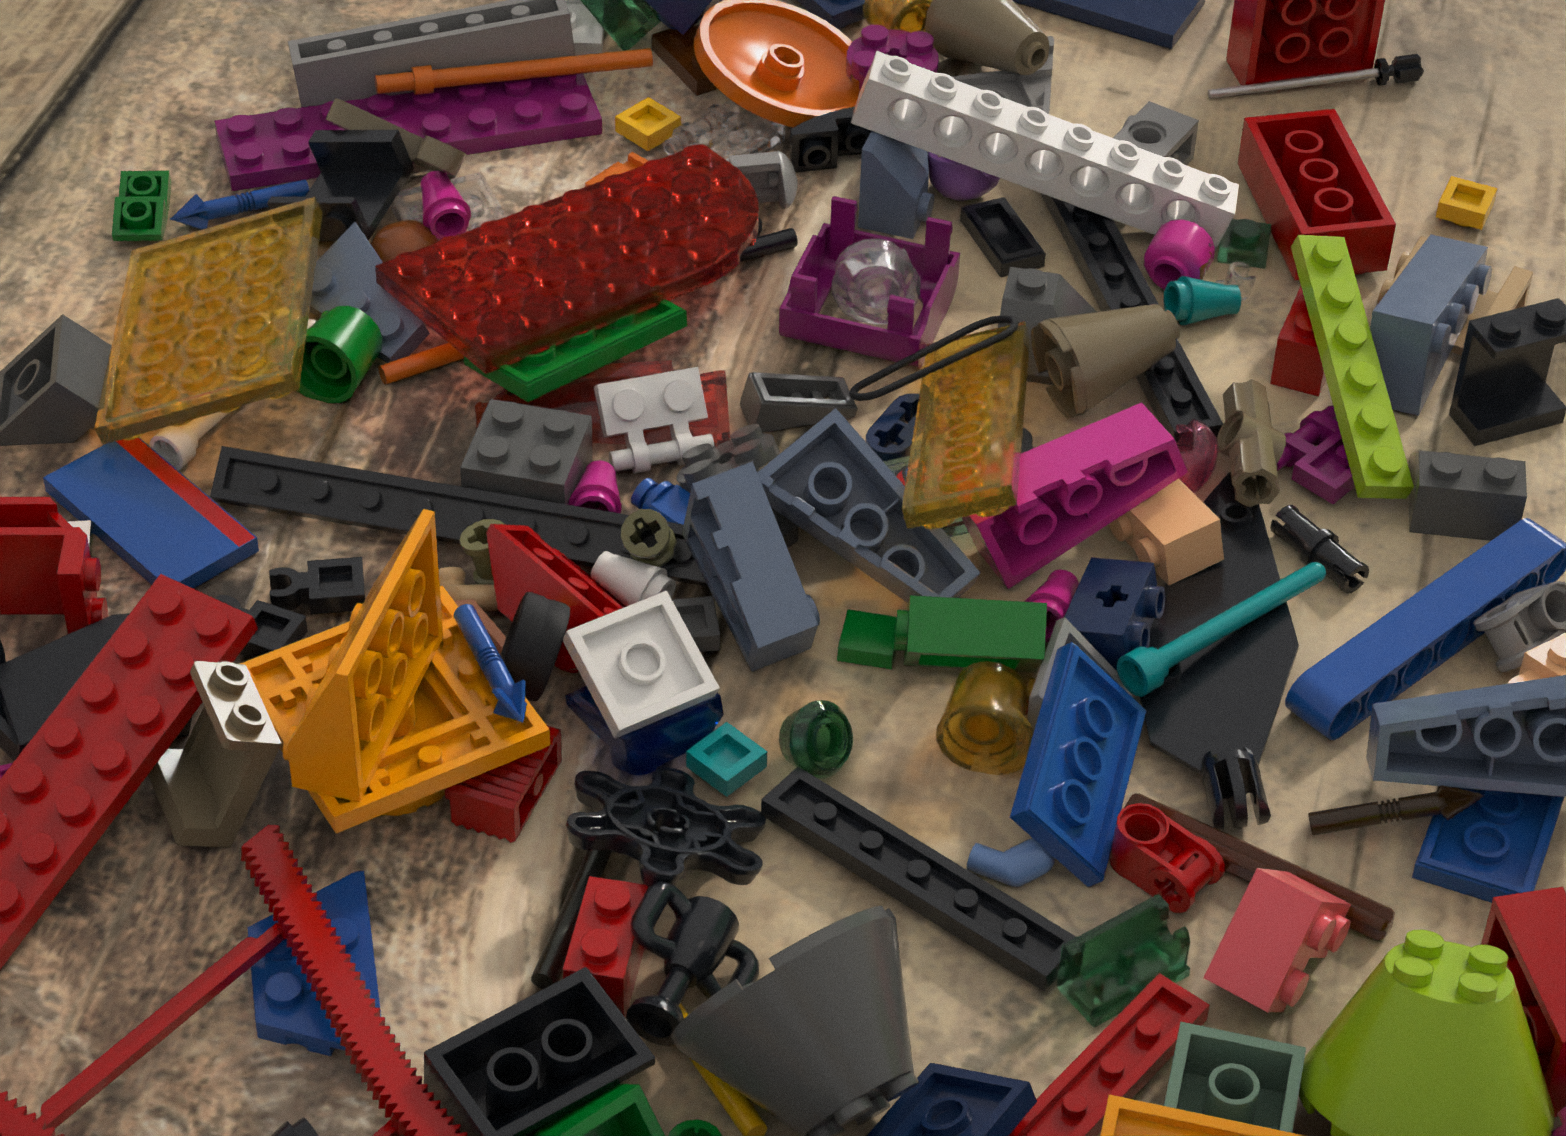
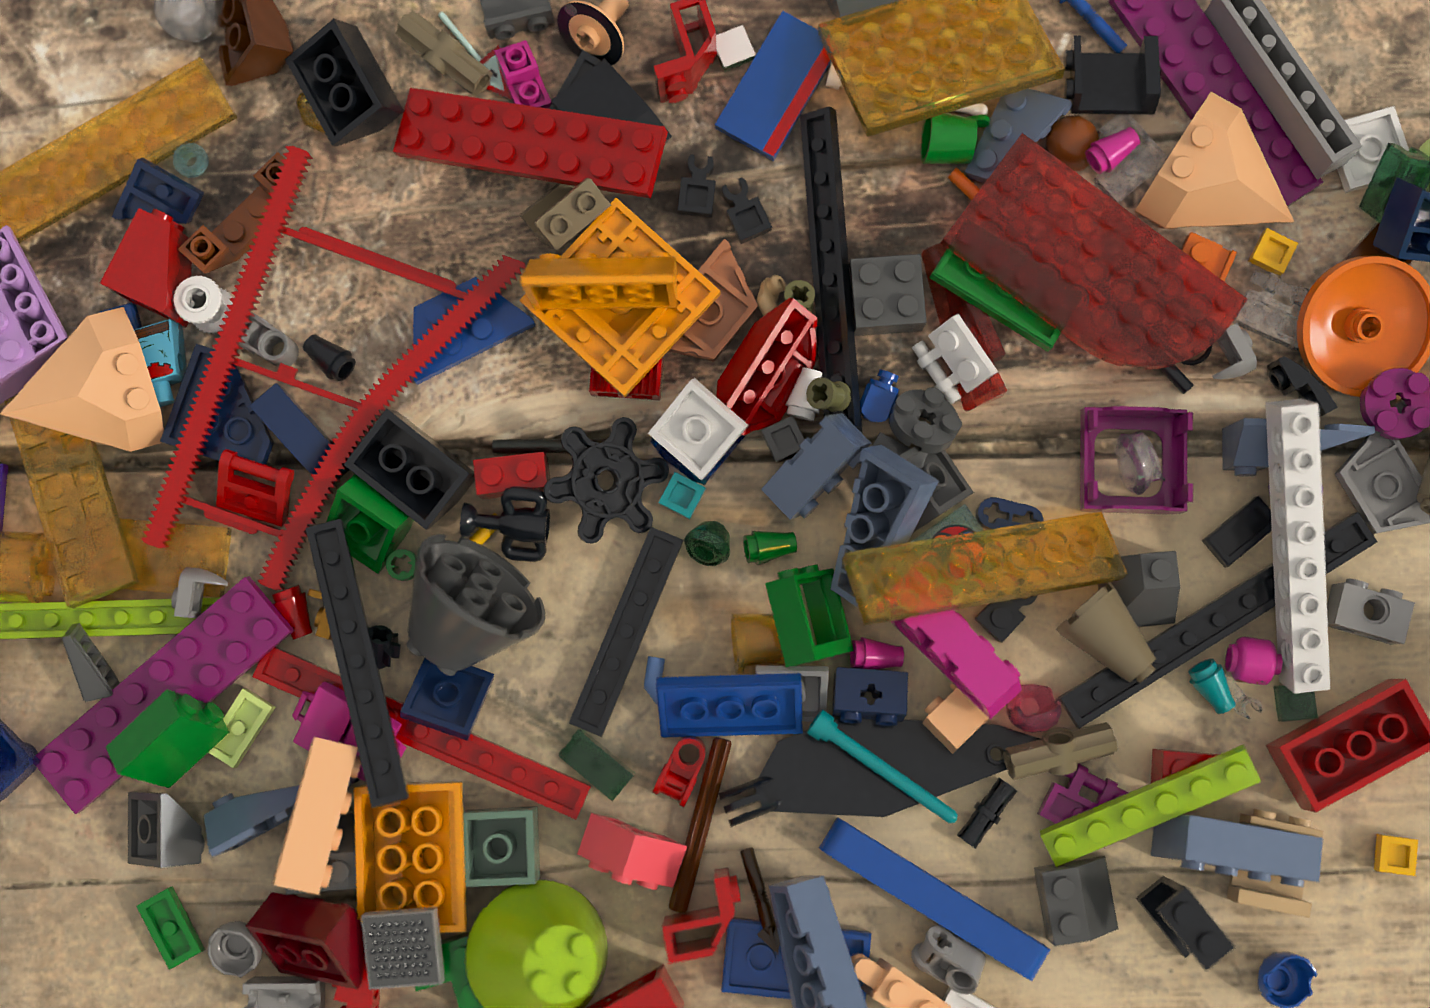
camera: 80 degrees right, 40 degrees up
(423, 151) = (1175, 99): dark tan beam -> none
(424, 79) = (1250, 85): orange bar -> none
(508, 693) = (629, 365): blue piece -> none
(527, 137) = (1215, 176): none -> light nougat wedge
(535, 642) = (702, 358): black tyre -> none
(597, 488) = (878, 346): dark pink cone -> none
(793, 400) = (1027, 436): dark grey slope -> none
(845, 680) = (767, 546): none -> green cone
(867, 639) = (814, 549): green tile -> none
(938, 365) = (1081, 512): black piece -> none
(1399, 841) = (727, 894): none -> red piece

